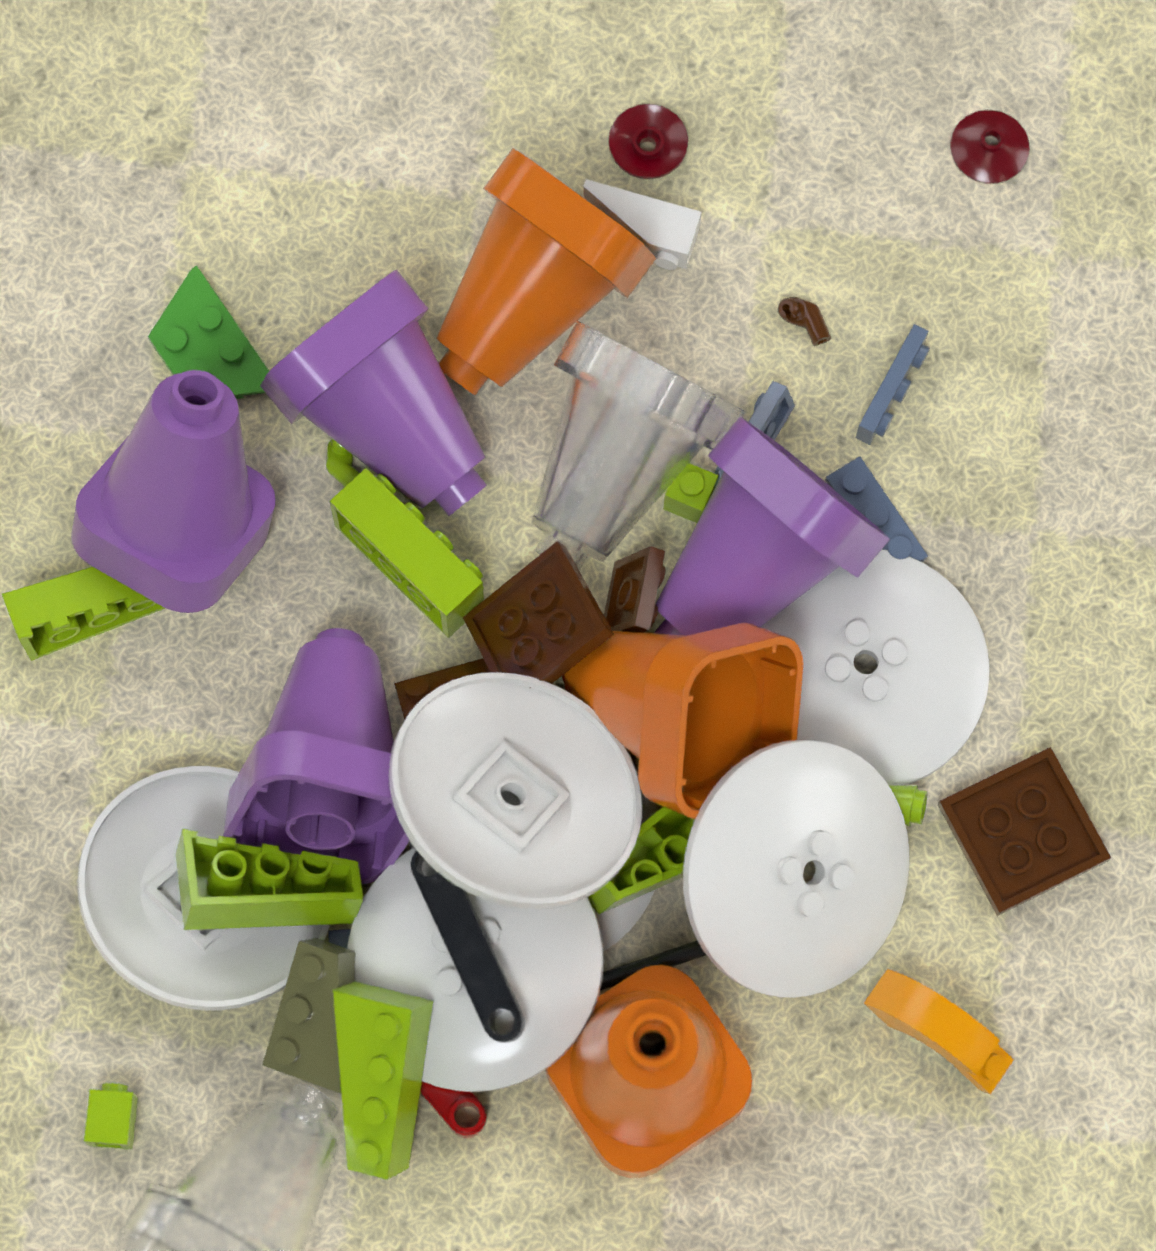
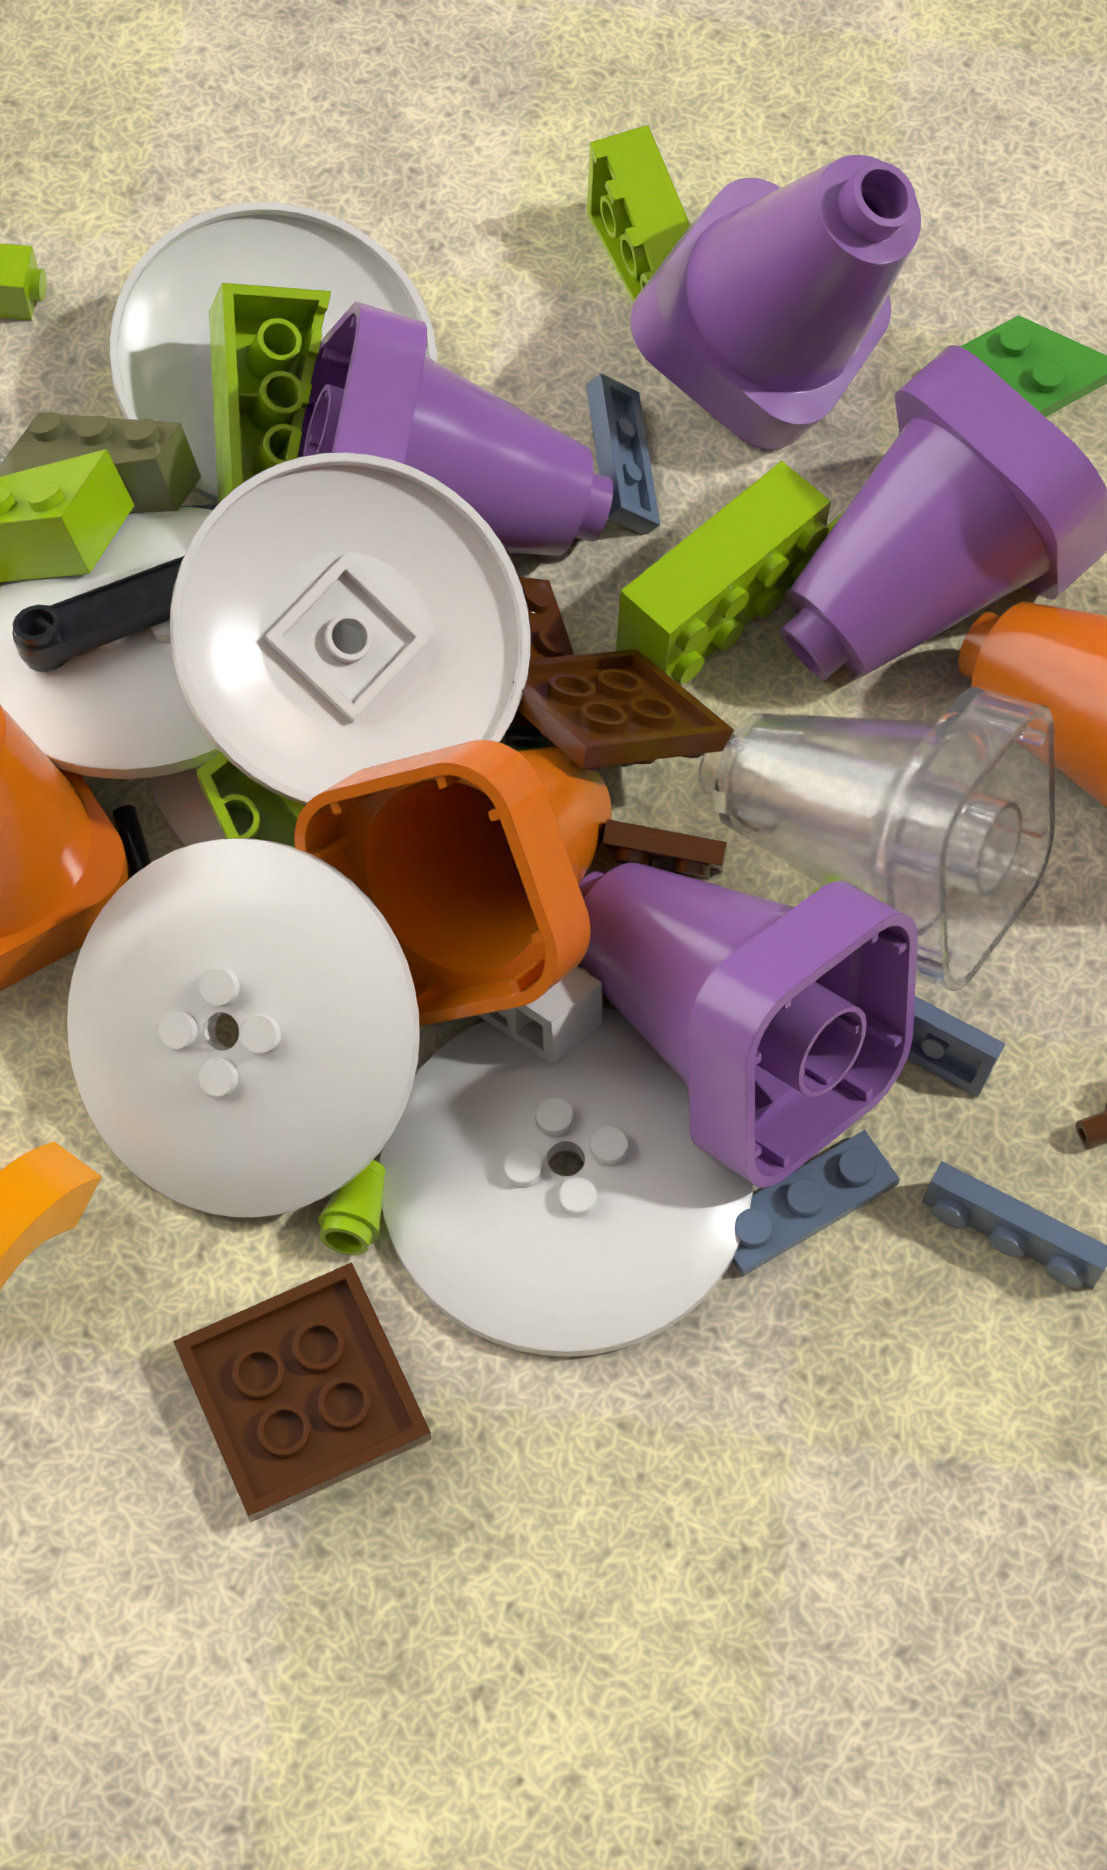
camera: 90 degrees right, 10 degrees down
(277, 629) = (623, 453): none -> sand blue plate

